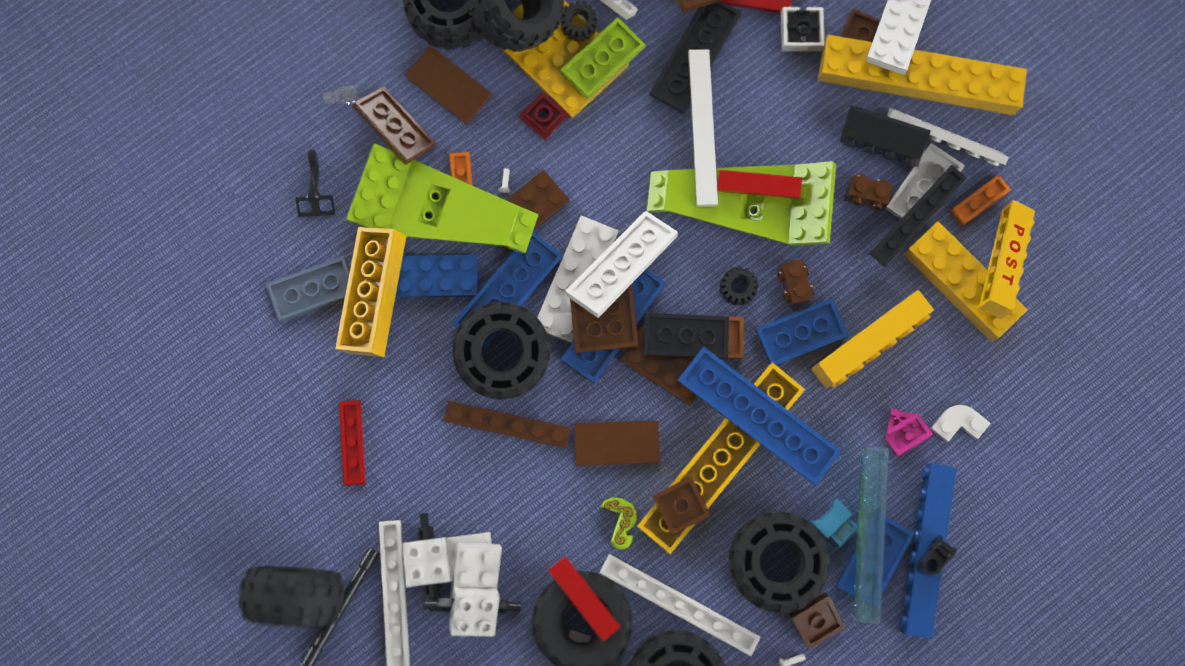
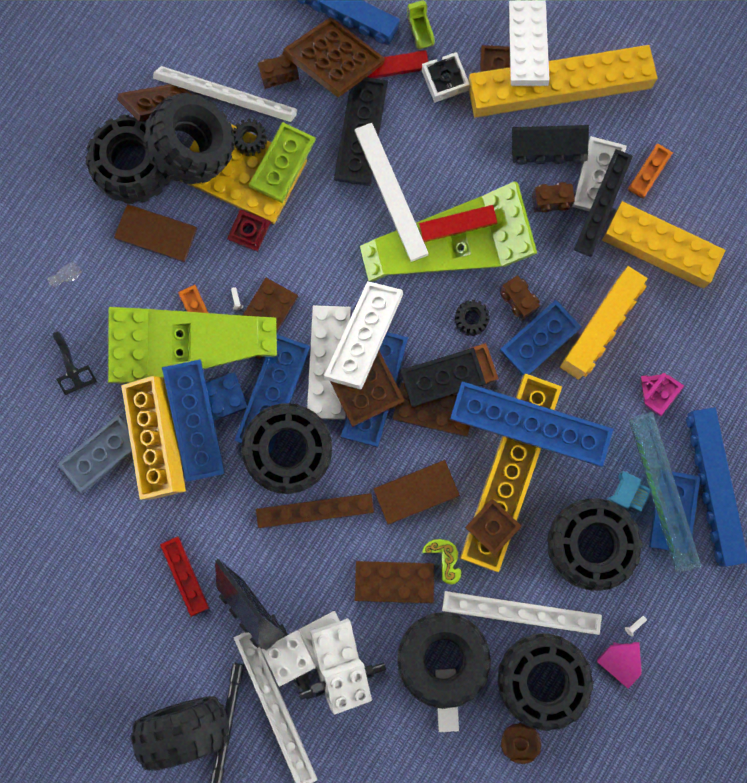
camera: 15 degrees left, 0 degrees up
(394, 125) = (120, 284): tile -> none
(402, 495) = (246, 607): none -> black slope
(417, 288) = (193, 420): none -> blue plate
(561, 526) = (394, 582): none -> reddish brown plate
(584, 598) = (439, 639): red tile -> none
(817, 621) = (645, 583): reddish brown plate -> none
(939, 554) = (729, 487): black piece -> none
(953, 140) = (610, 127): white plate -> none
(959, 417) = (699, 364): white plate -> none
(1007, 260) = (693, 213): yellow brick -> none

